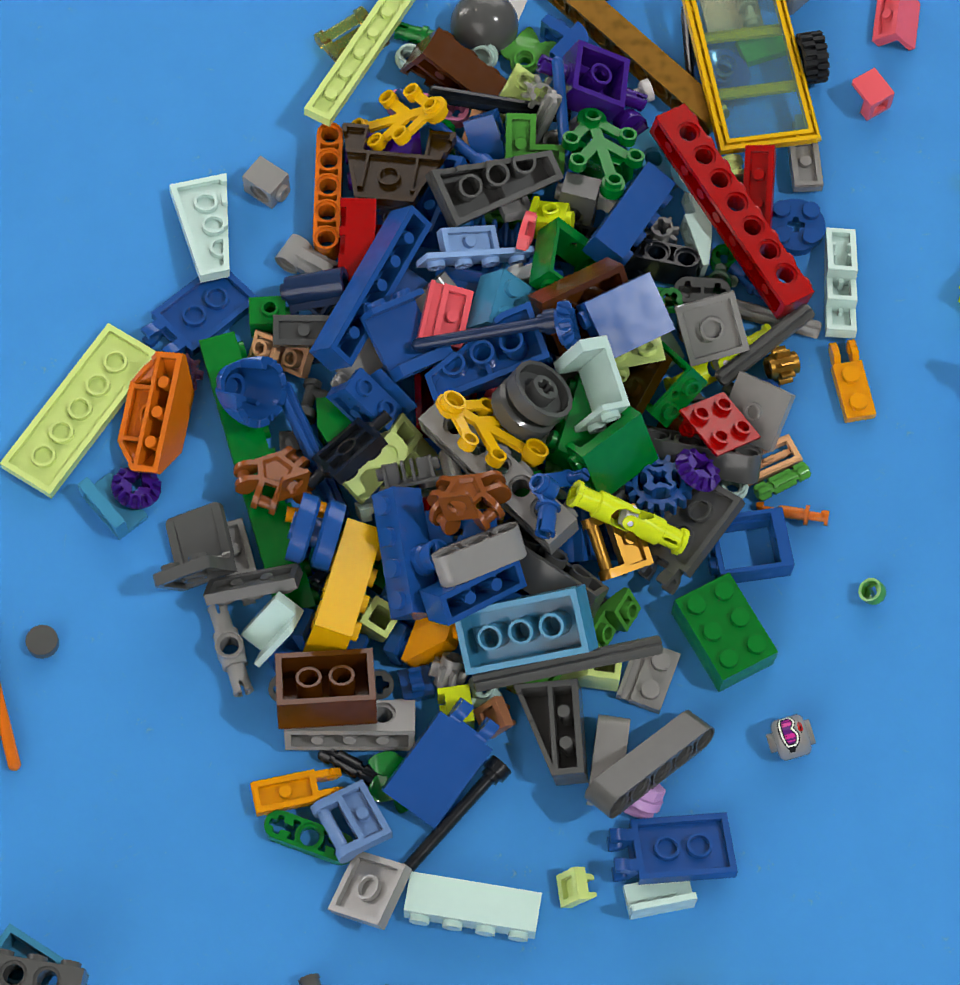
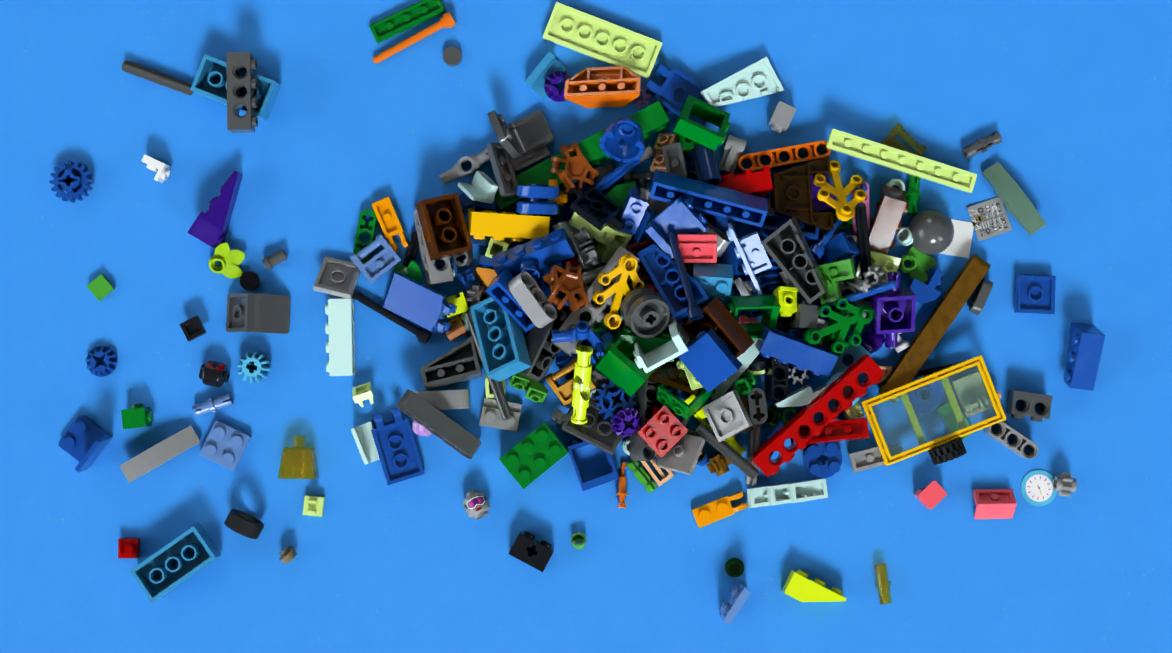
camera: 80 degrees right, 20 degrees up
(250, 282) = (698, 132): none -> green window
(526, 231) = (769, 287): coral tile -> none
(566, 324) = (693, 324): blue gear -> none
(873, 682) = (537, 560): none -> black brick
(944, 376) = (734, 567): none -> dark green plate

